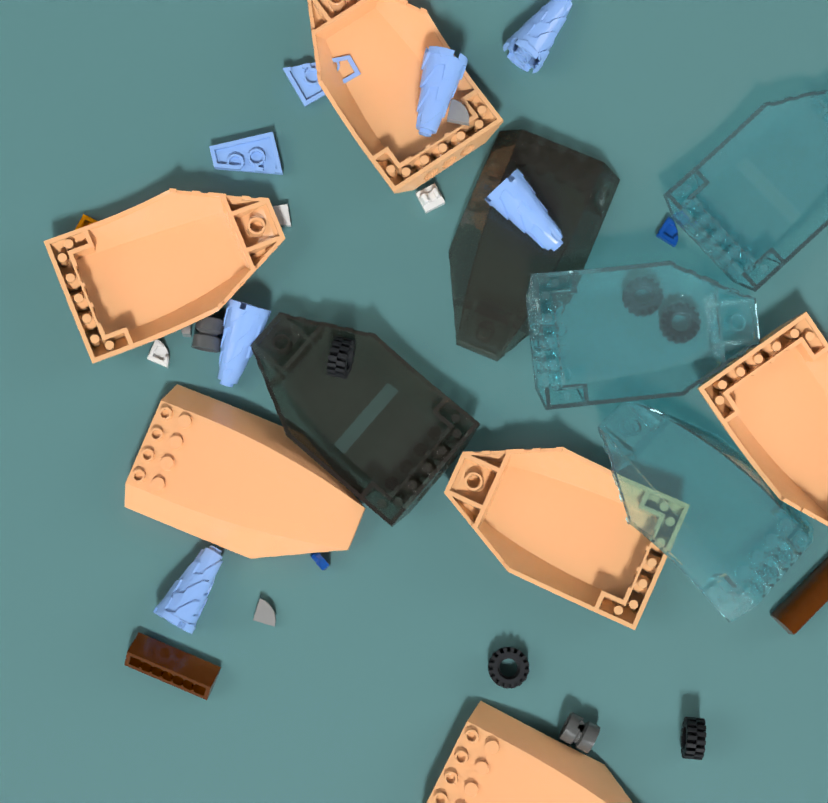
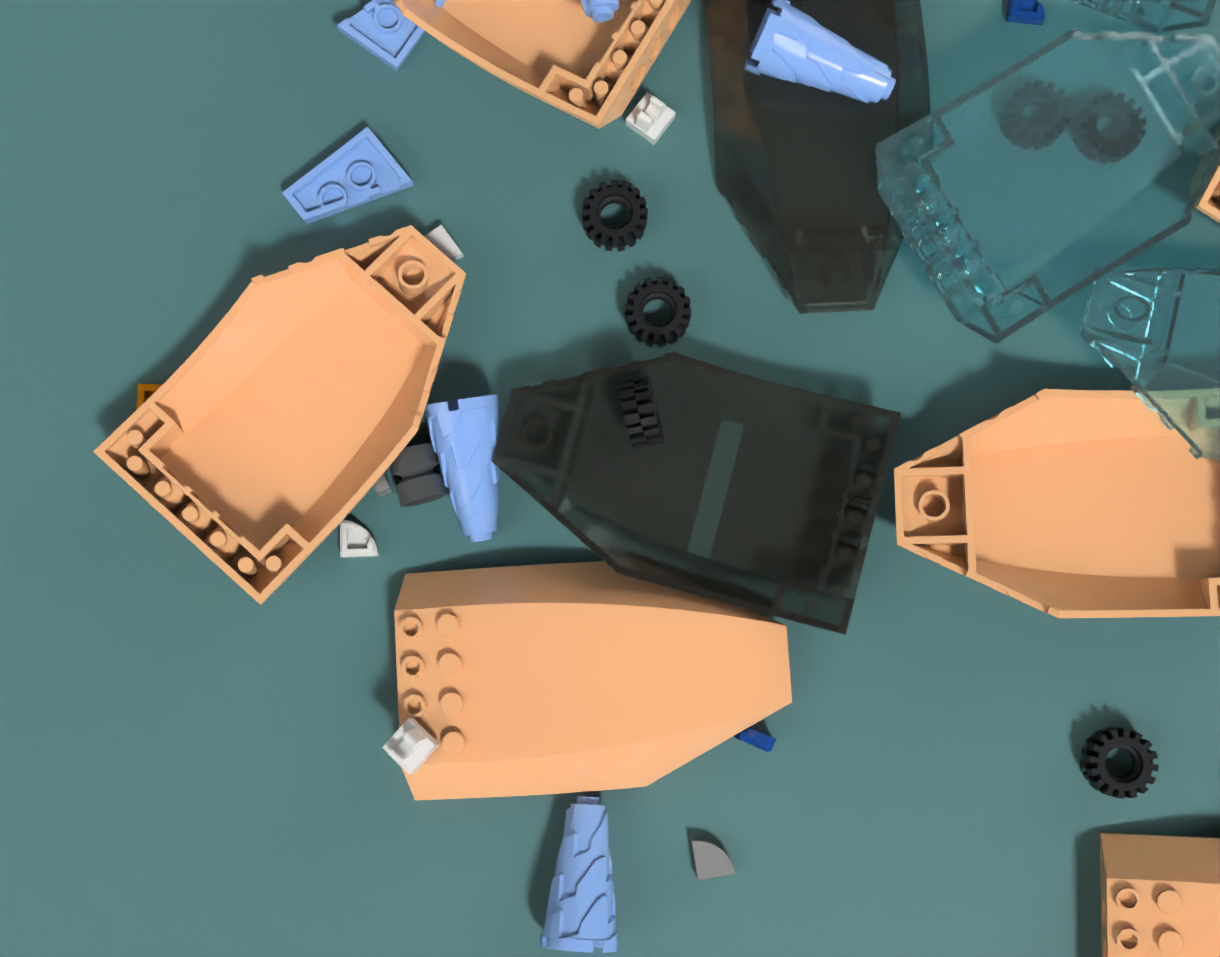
camera: 25 degrees left, 0 degrees up
(135, 474) = (410, 746): none -> white tile
(374, 295) = (663, 291): none -> black tyre
(383, 230) = (621, 195): none -> black tyre

